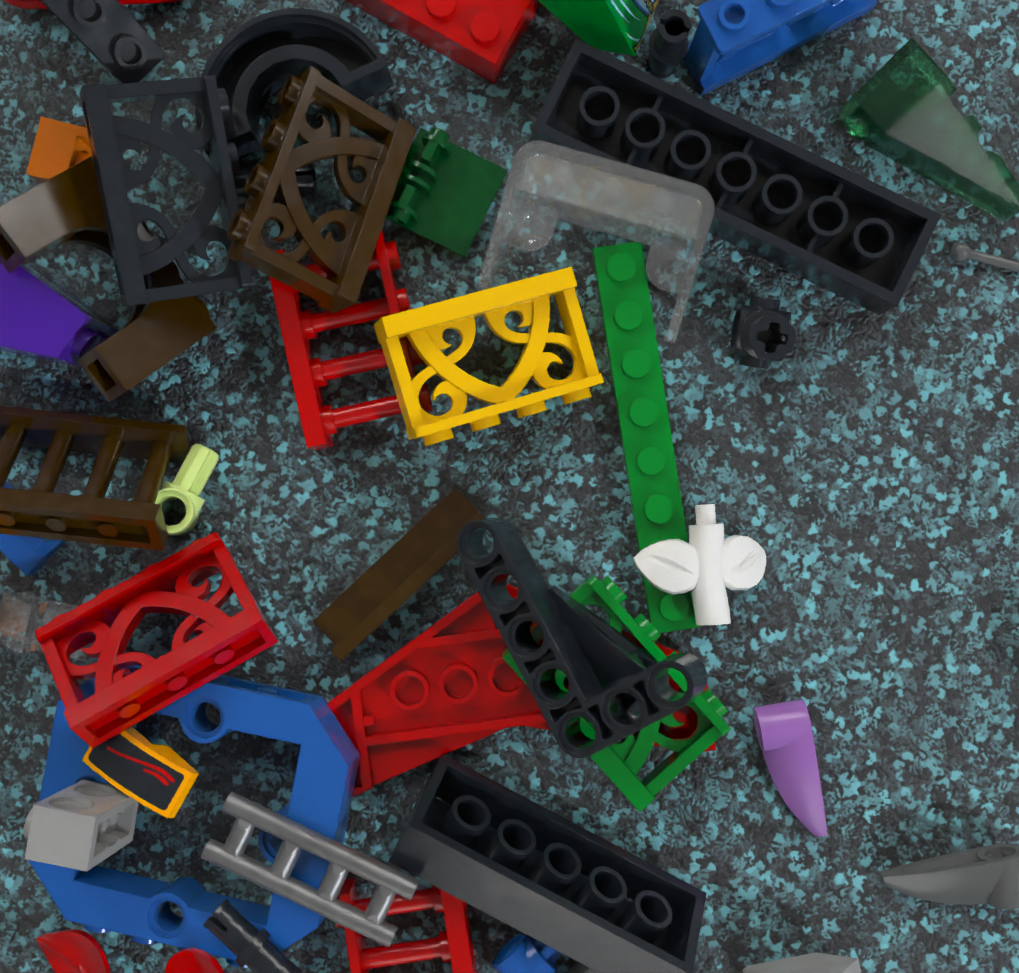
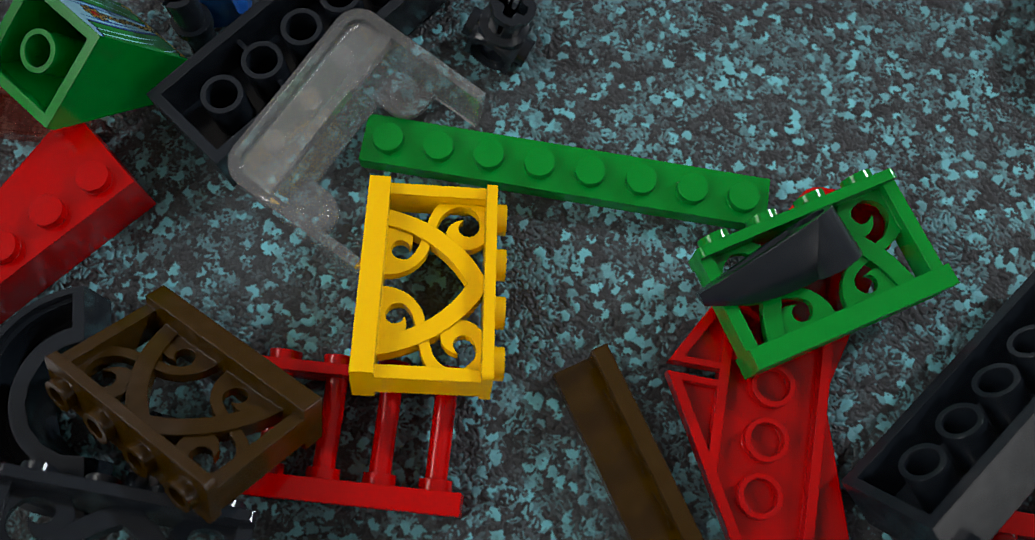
camera: 80 degrees left, 15 degrees down
(444, 191) = (242, 283): dark green hinge -> none
(561, 650) = (776, 300): black beam -> none
(704, 566) = (713, 155): white plant -> none
(791, 758) = (918, 134): medium lavender piece -> none

